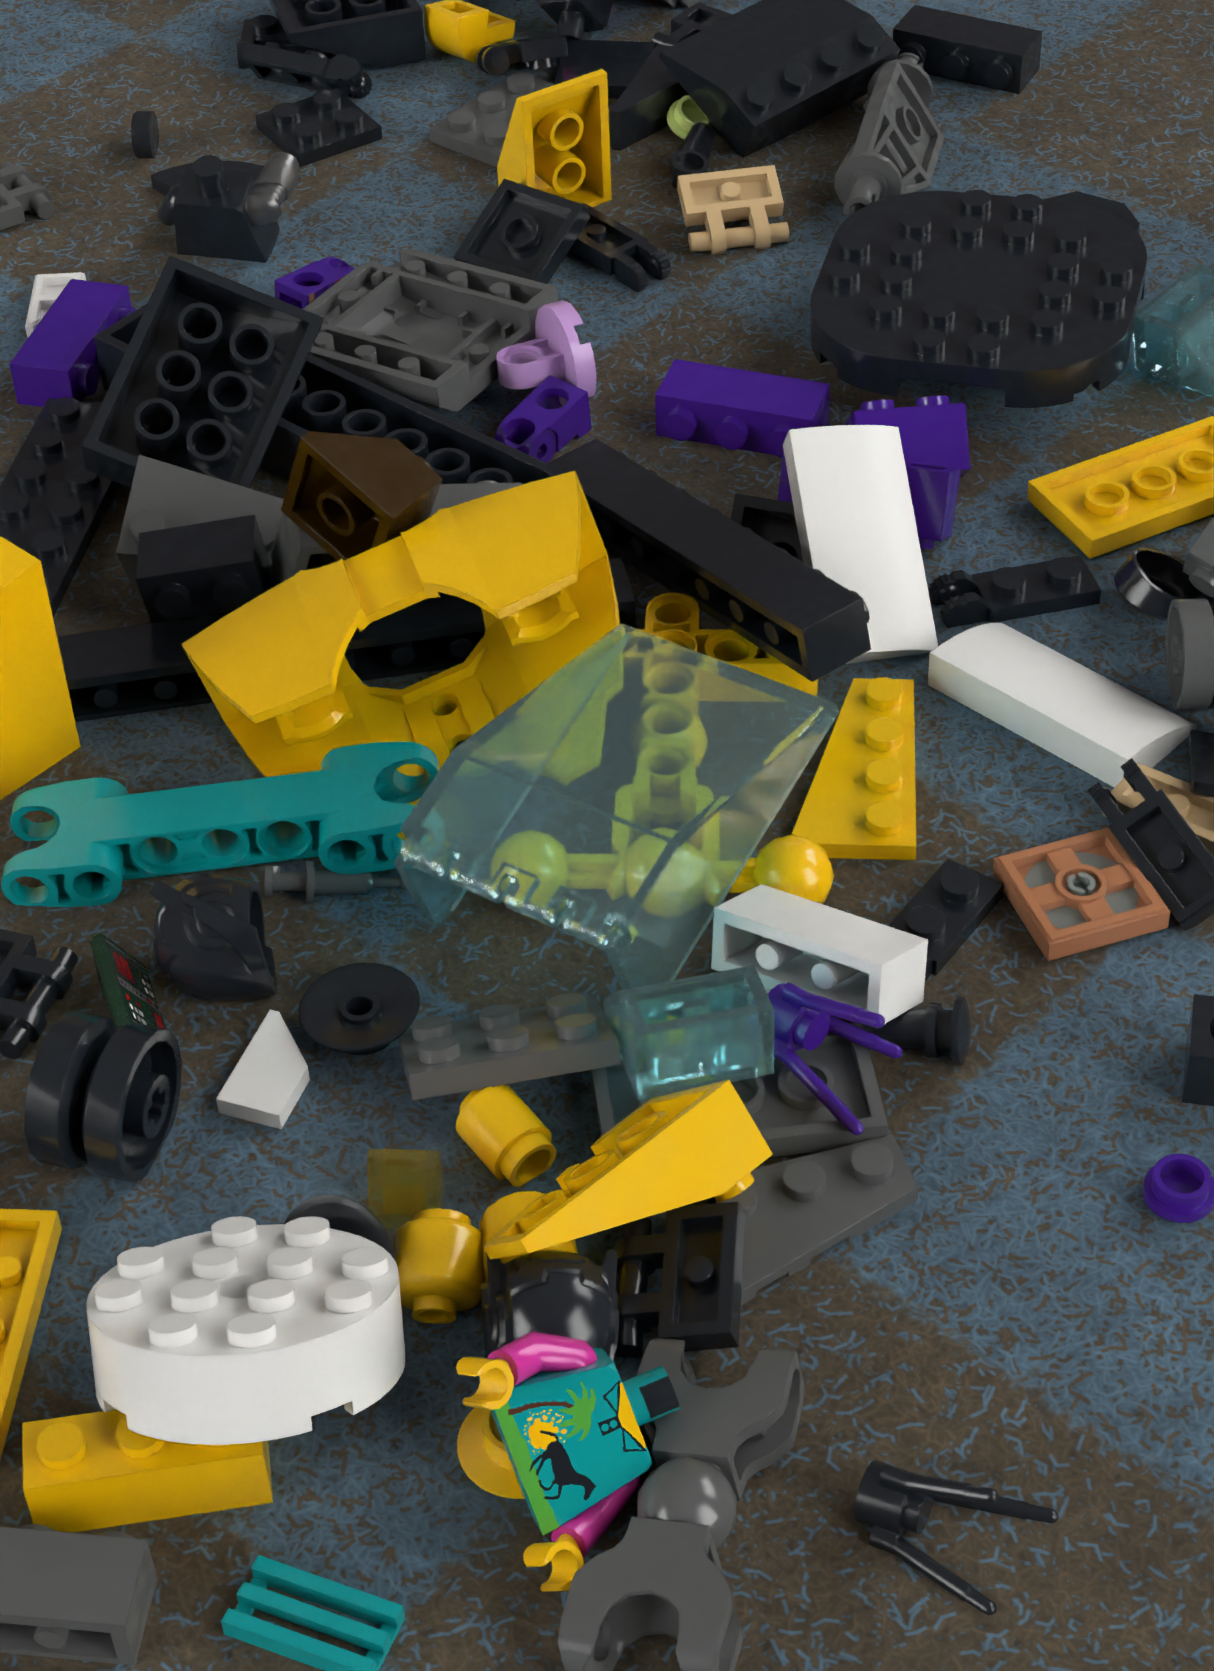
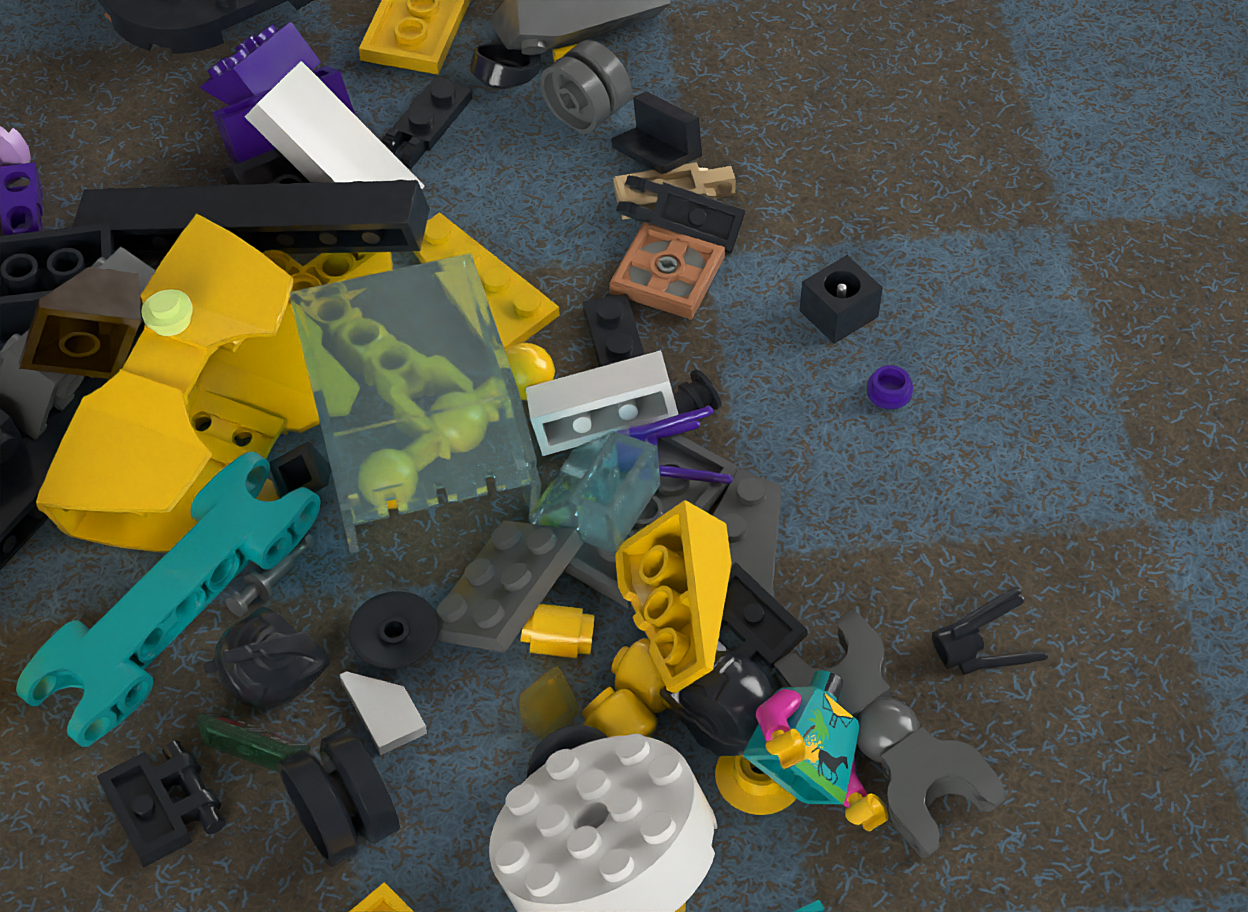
camera: 50 degrees left, 10 degrees up
(424, 528) = (167, 312): none -> yellowish green plate
(737, 406) = (134, 112): dark purple brick -> none
(1054, 701) = (525, 172): white slope -> none

